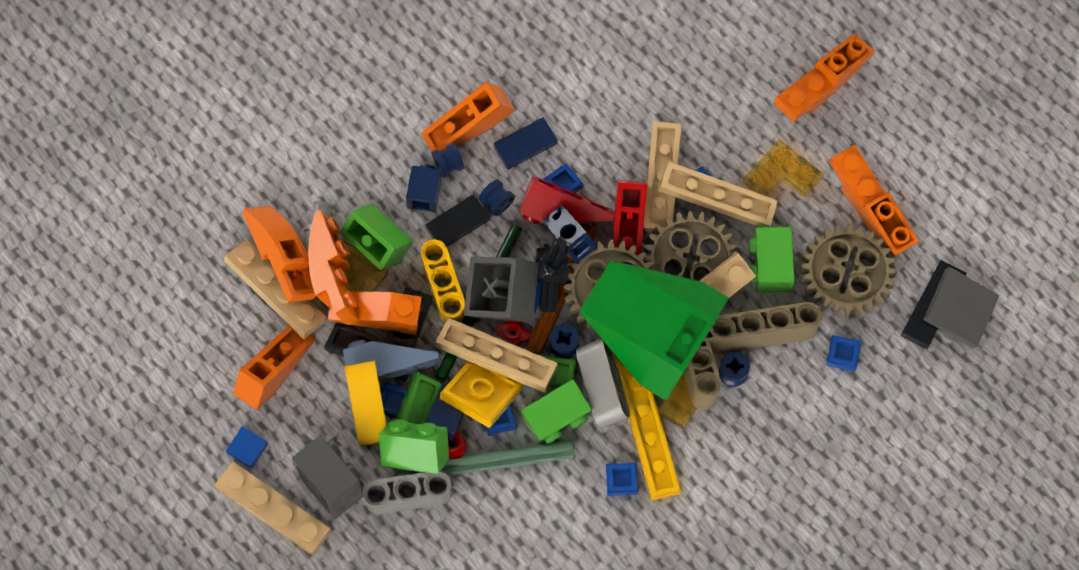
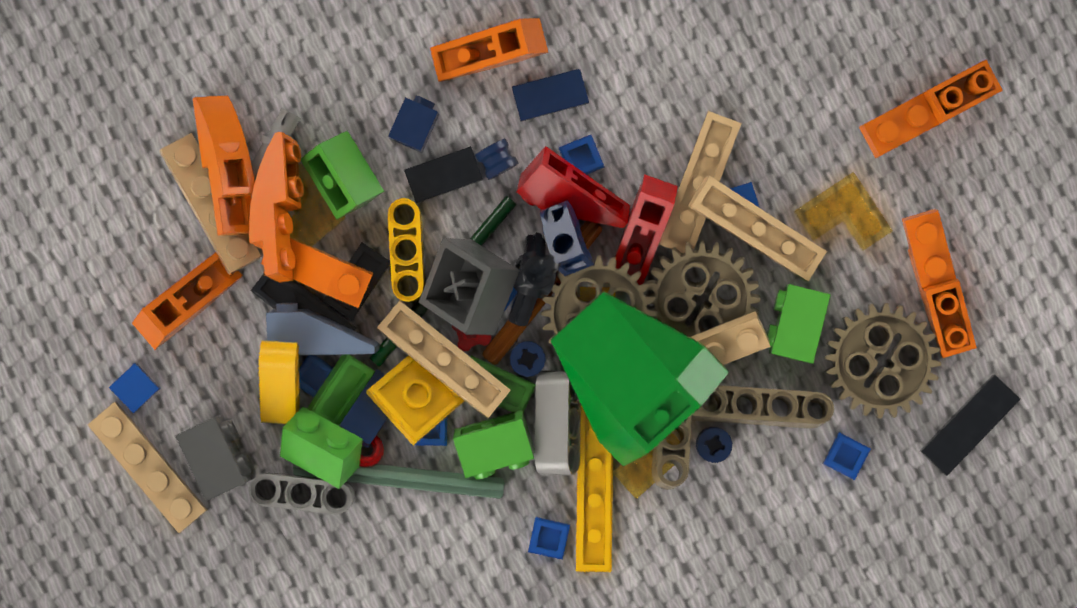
camera: 20 degrees right, 20 degrees up
(448, 160) = (451, 95): dark blue wheel -> none
(961, 307) = (999, 441): dark grey tile -> none

